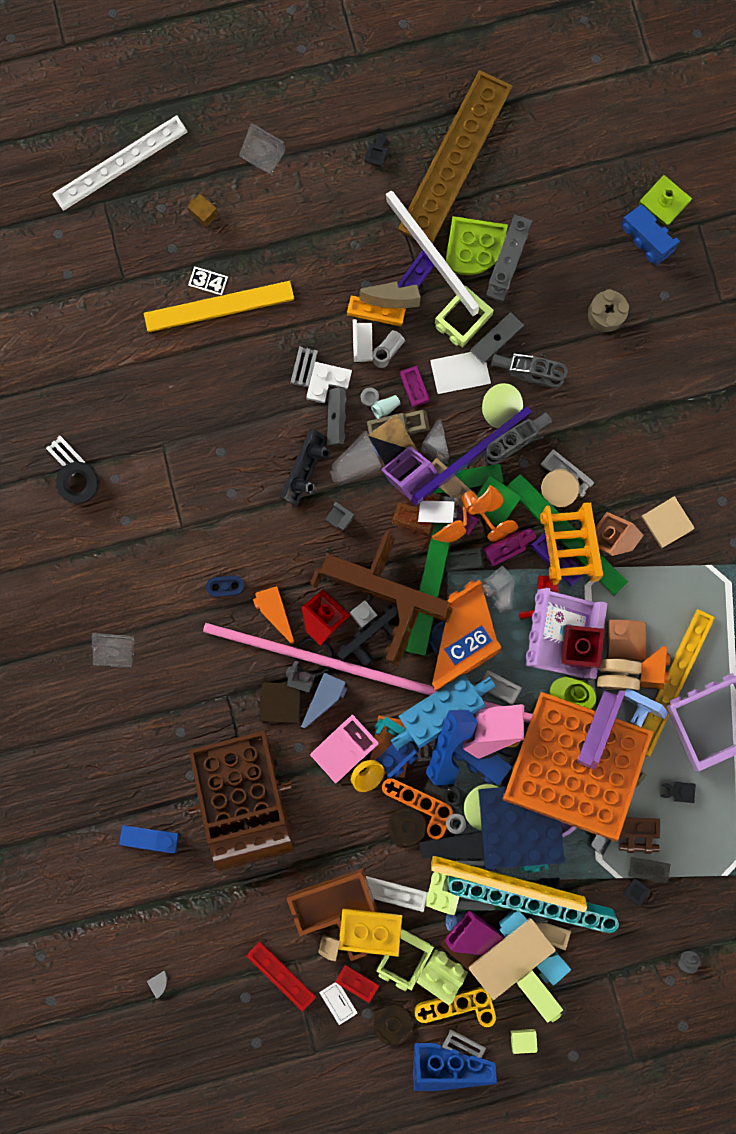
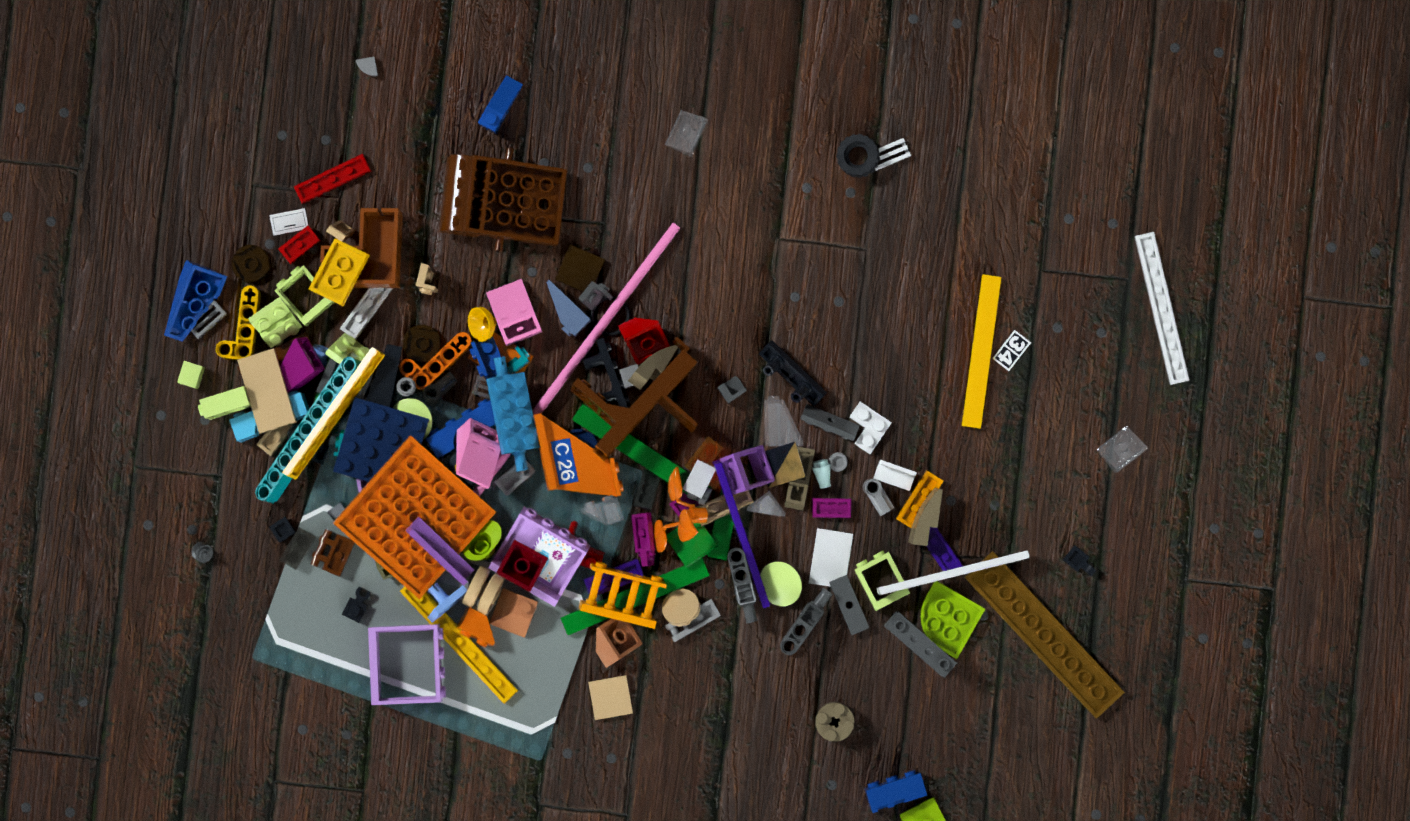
camera: 110 degrees right, 5 degrees up
(202, 210) = (1082, 369): pearl gold brick -> none
(225, 586) = (706, 258): dark blue plate -> none
(272, 608) = (669, 294): orange slope -> none
(307, 351) = (904, 419): light grey tile -> none
(343, 847) = (424, 277): none -> tan bracket
(348, 595) = (652, 366): none -> dark tan slope
(457, 728) = (489, 418): blue arch -> none

